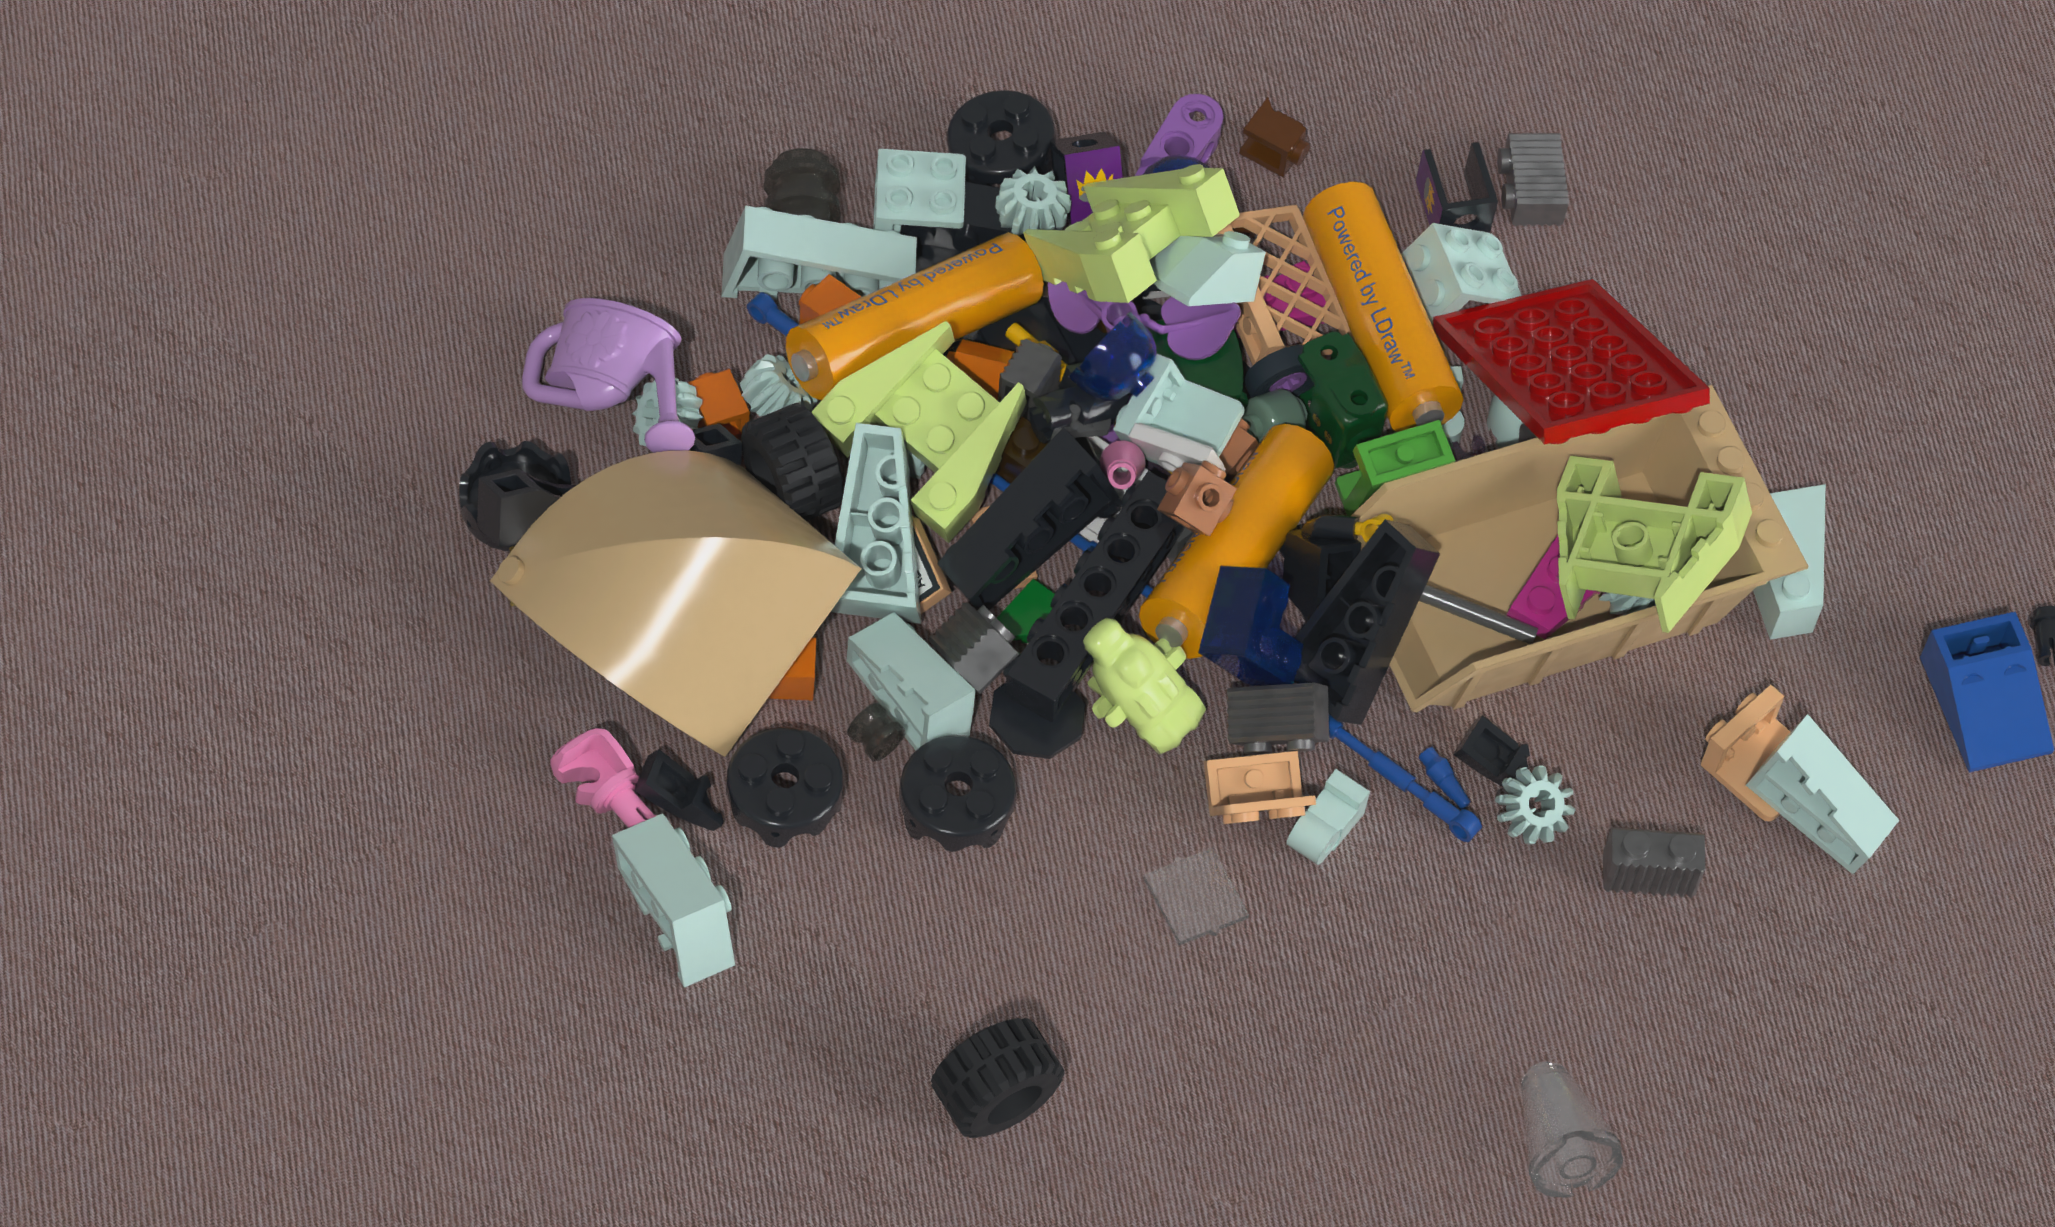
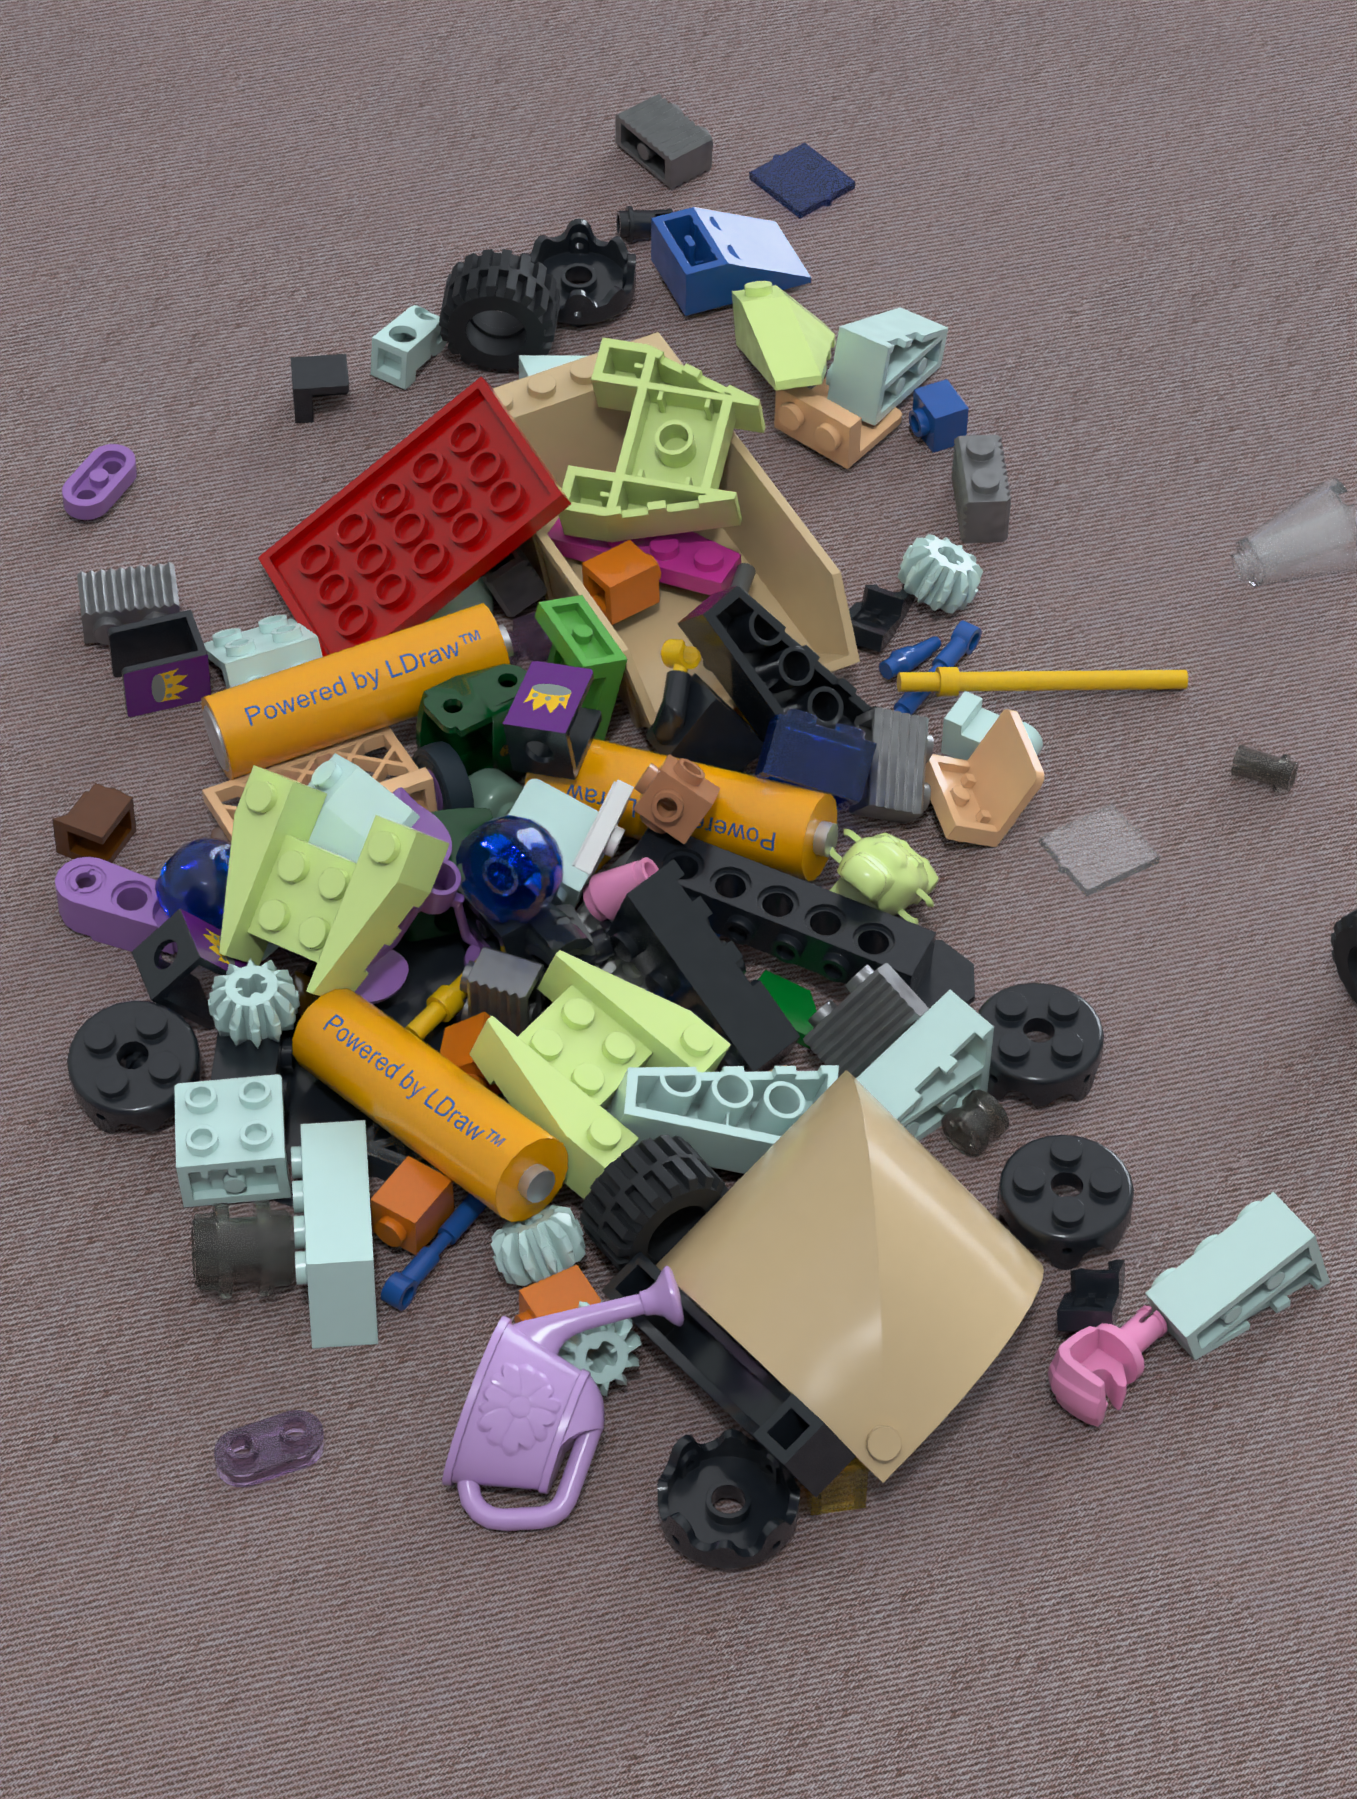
camera: 90 degrees left, 10 degrees down
(625, 209) = (270, 1447): none -> clear purple plate
(1277, 1046) = (1265, 768): none -> clear smoke pin
(1302, 422) = (546, 723): none -> piece
(1392, 791) = (949, 681): none -> yellow bar
(1515, 528) = (622, 581): none -> orange brick
(1695, 170) = (99, 481): none -> medium lavender plate
(1760, 845) = (938, 415): none -> blue plate
(1812, 335) = (317, 377): none -> black panel
(1862, 710) = (781, 336): none -> yellowish green wedge
(1873, 419) = (405, 346): none -> light aqua leg
(1886, 475) = (493, 284): none -> black tyre
(1965, 539) = (584, 258): none -> black plate

